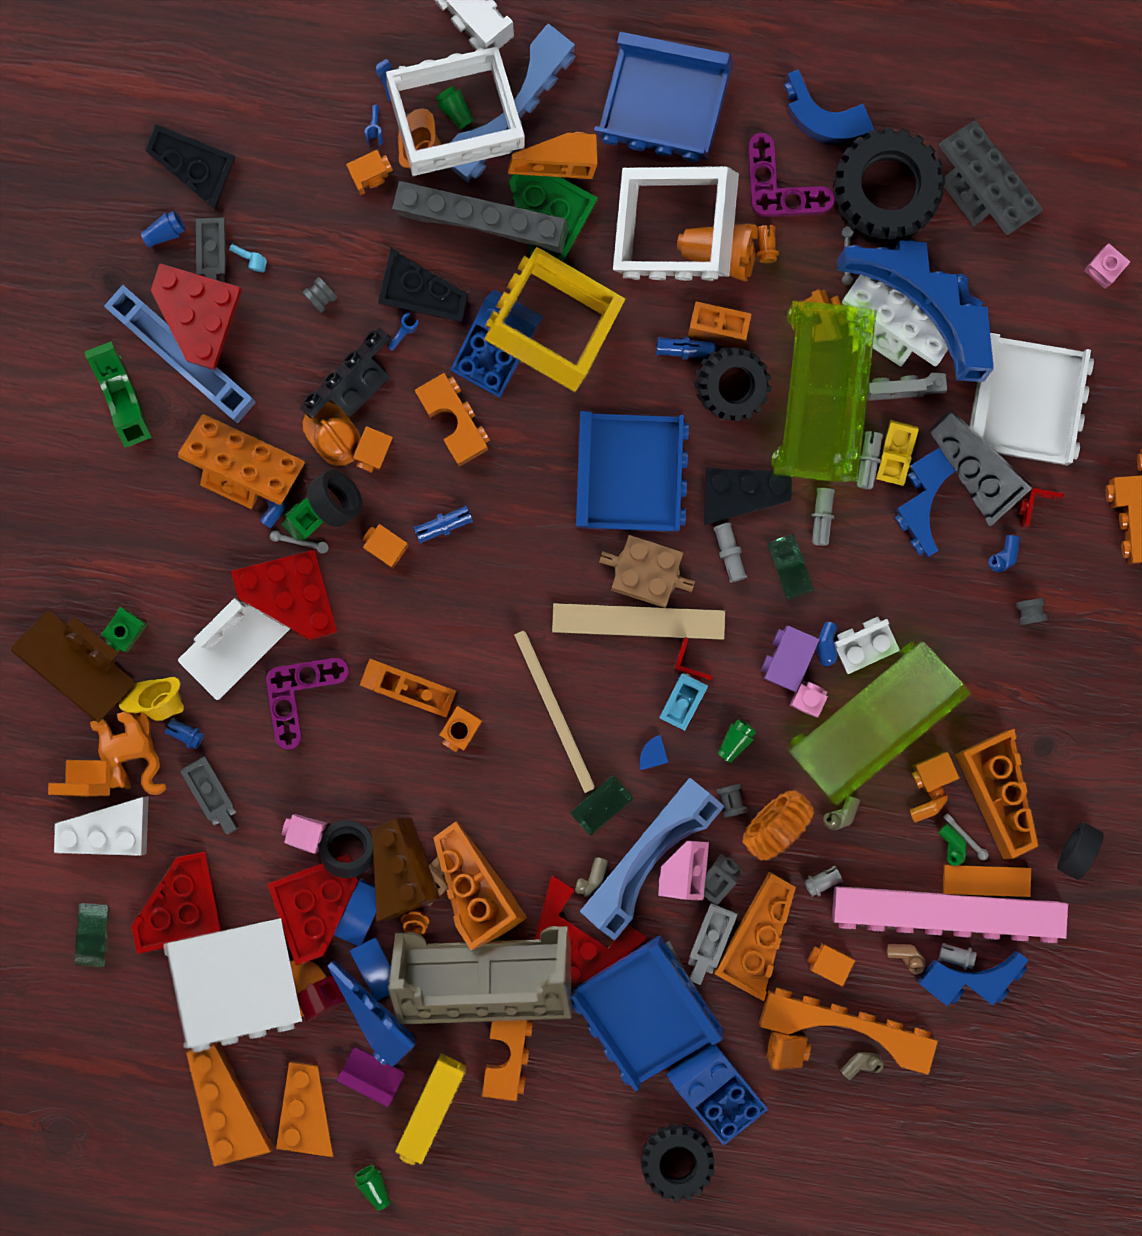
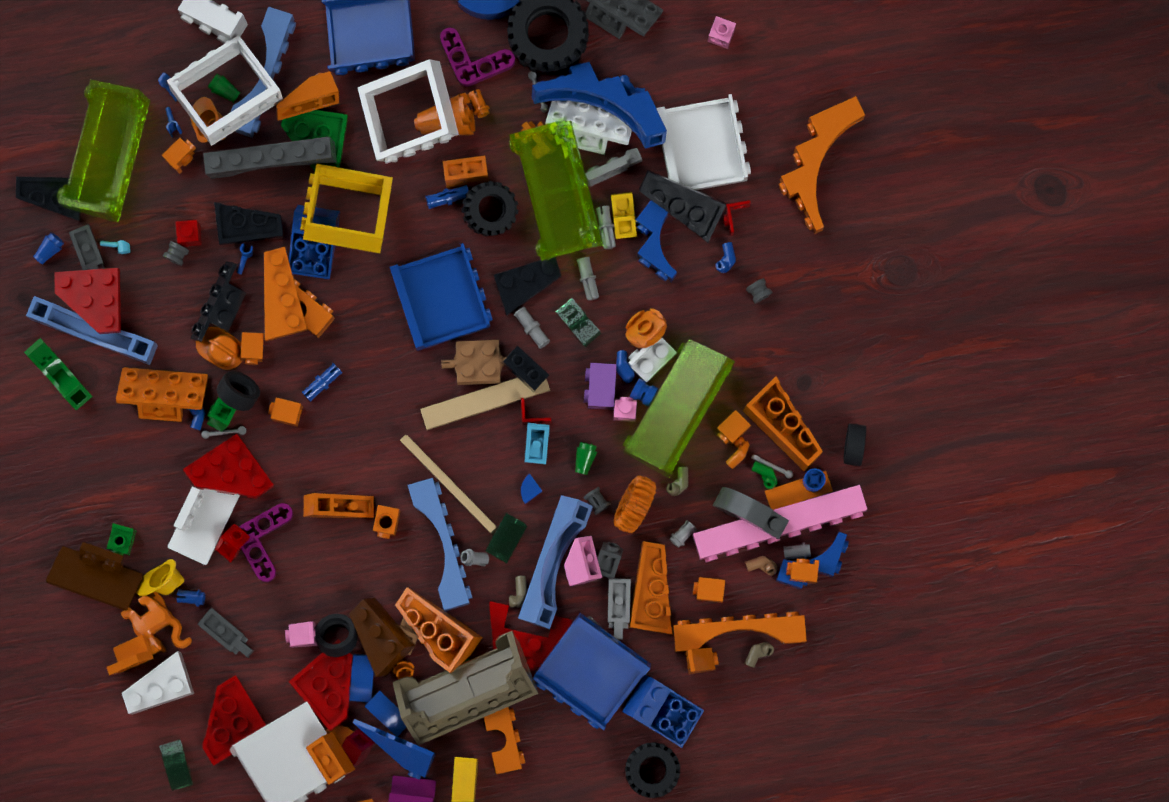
camera: 20 degrees left, 5 degrees down
(259, 684) = (231, 542): none -> red bracket
(278, 132) = (105, 150): none -> clear neon green windscreen
(284, 1002) = (330, 758): none -> orange panel
(344, 275) = (188, 233): none -> red brick
(429, 407) = (281, 298): none -> orange wing
(512, 842) = (426, 500): none -> medium blue arch
(548, 814) = (470, 558): none -> light grey pin
(703, 603) = (525, 369): none -> black brick
(840, 686) = (643, 392): none -> blue wheel
(872, 607) = (645, 328): none -> orange tile
(918, 887) = (751, 511): none -> dark grey arch
(957, 987) = (803, 571): none -> orange brick
(1017, 878) = (812, 477): none -> blue wheel

